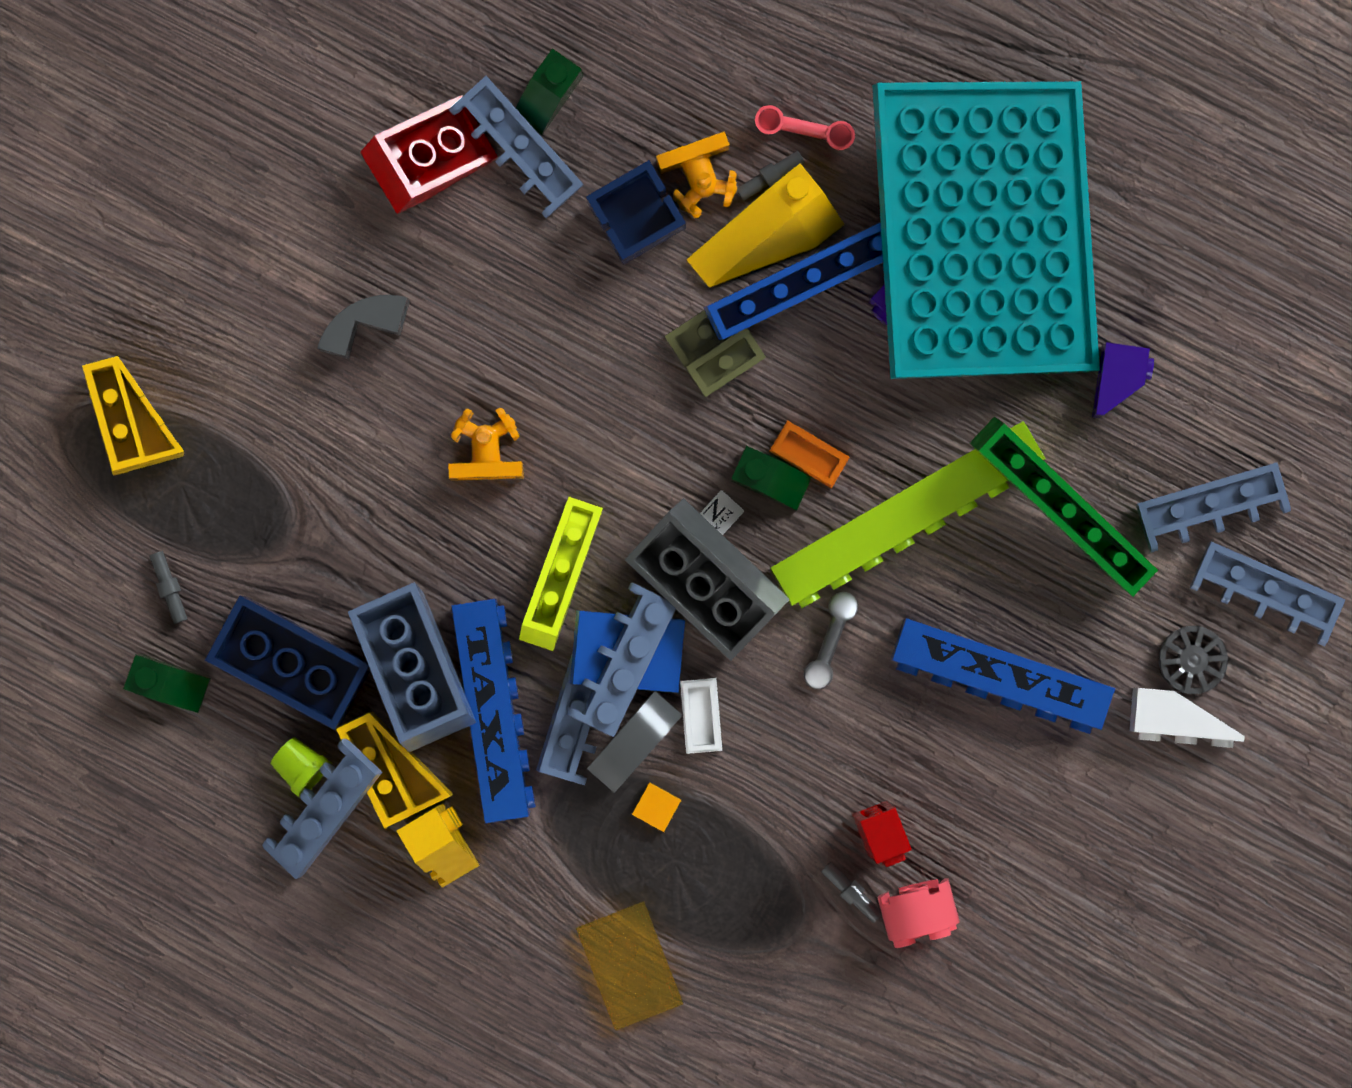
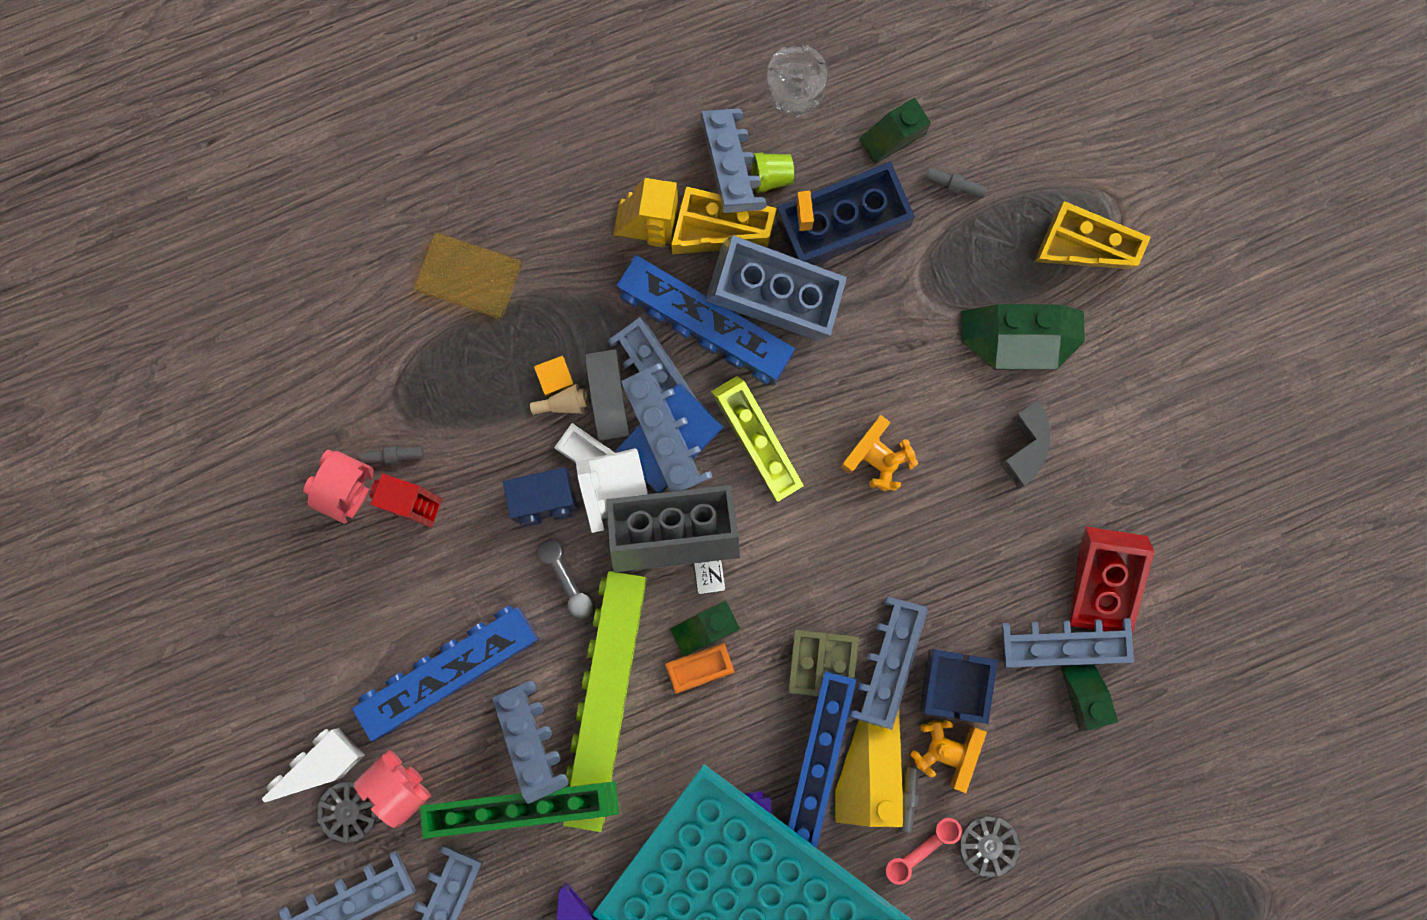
camera: 130 degrees right, 5 degrees down
(178, 829) = (795, 63): none -> clear brick
(265, 408) = (1023, 335): none -> dark green wedge
(320, 698) = (804, 210): none -> light orange tile
(663, 287) = (892, 663): none -> sand blue hinge
(667, 772) = (567, 401): none -> tan cone
(709, 674) = (609, 478): none -> white bracket
(752, 73) = (989, 846): none -> flat silver wheel
(776, 721) = (540, 497): none -> dark blue piece
(1001, 550) = (525, 743): none -> sand blue hinge
(1139, 633) = (392, 789): none -> coral brick

